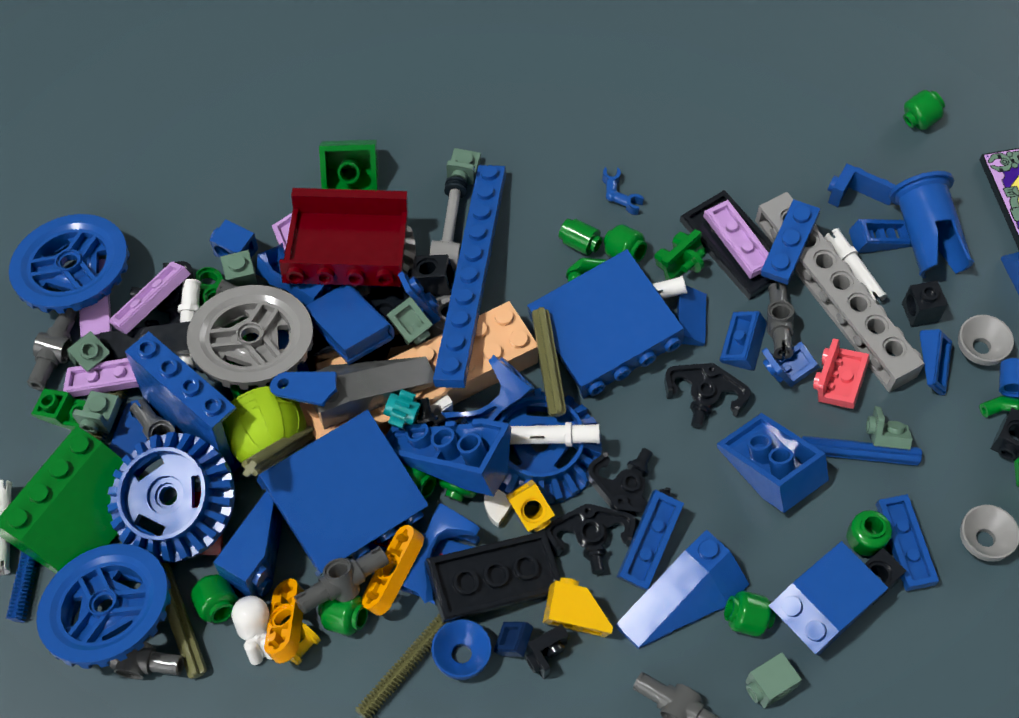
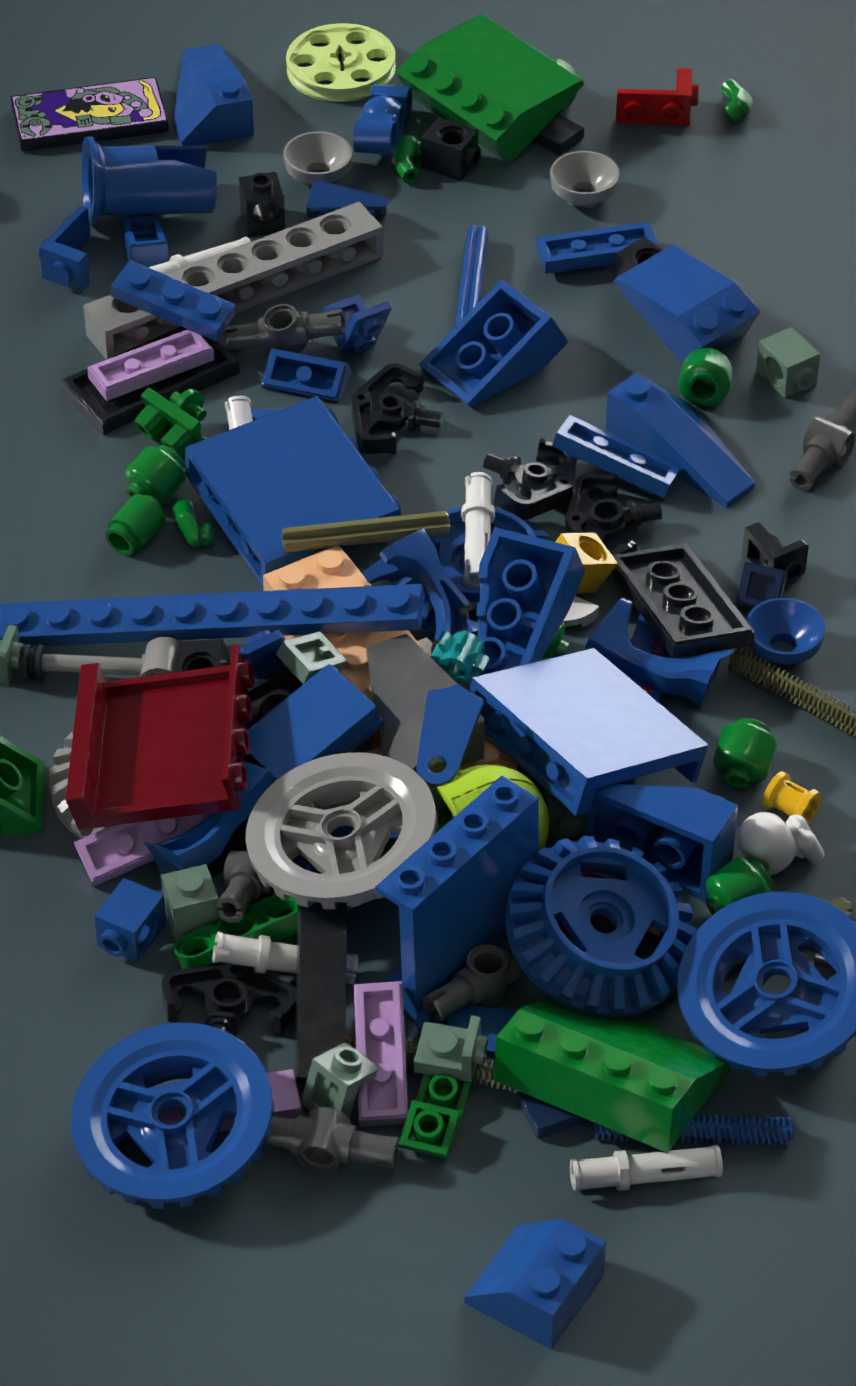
camera: 90 degrees left, 15 degrees down
(149, 297) = (246, 996): lavender tile -> none
(276, 452) = (565, 754): olive axle -> none
(284, 639) = (797, 783): light orange beam -> none
(341, 580) = (727, 737): dark grey pin -> none
(385, 587) = (652, 686): light orange beam -> none
(575, 609) = (718, 522): yellow slope -> none
(619, 198) = (26, 497): blue arm -> none
(840, 376) = (370, 279): coral bracket -> none
(869, 533) = (593, 268): green head -> none
(889, 434) = (449, 249): sand green bracket -> none

